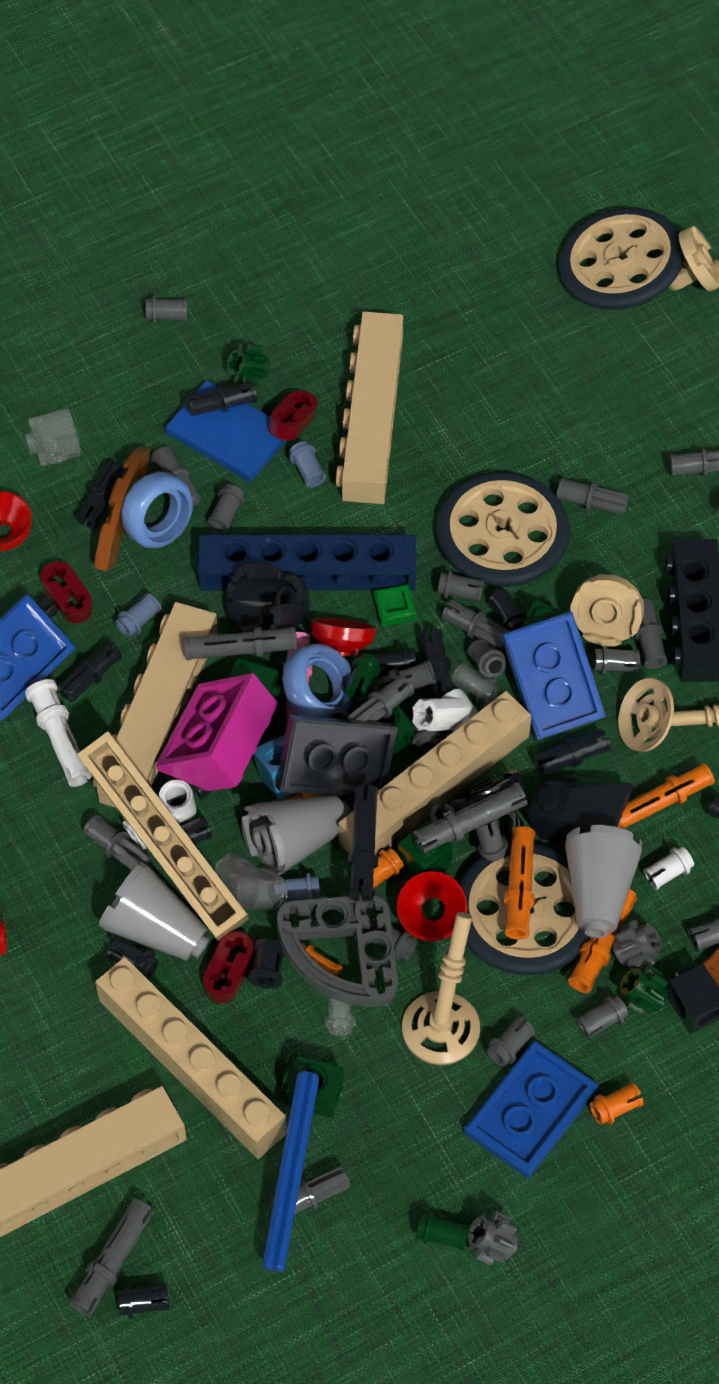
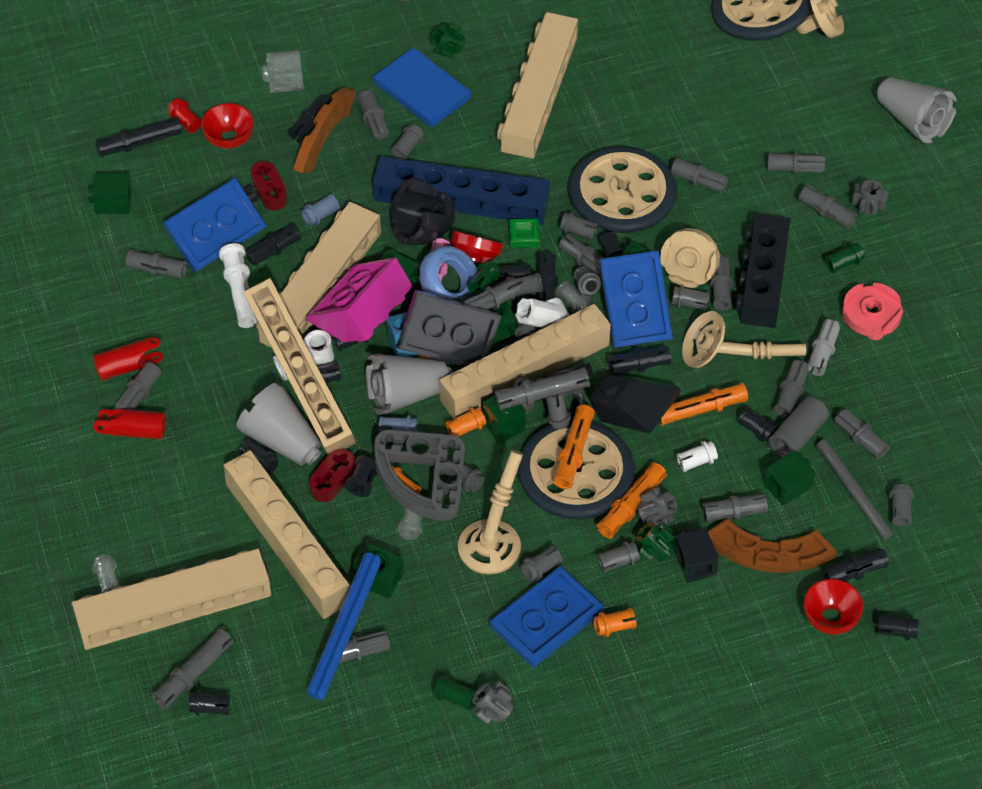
camera: 10 degrees right, 5 degrees down
(115, 843) = (264, 372): dark grey axle -> none
(139, 500) = (332, 128): medium blue wheel -> none
(221, 398) = (421, 61): black axle -> none
(241, 643) = (393, 237): dark grey pin -> none
(250, 884) = (361, 415): clear piece -> none
(293, 415) = (474, 81): dark red beam -> none
(304, 458) = (476, 113): sand blue pin -> none
(363, 856) = (451, 405): black pin -> none
(420, 890) = (493, 441): red piece -> none
(601, 875) = (639, 447): light grey cone -> none

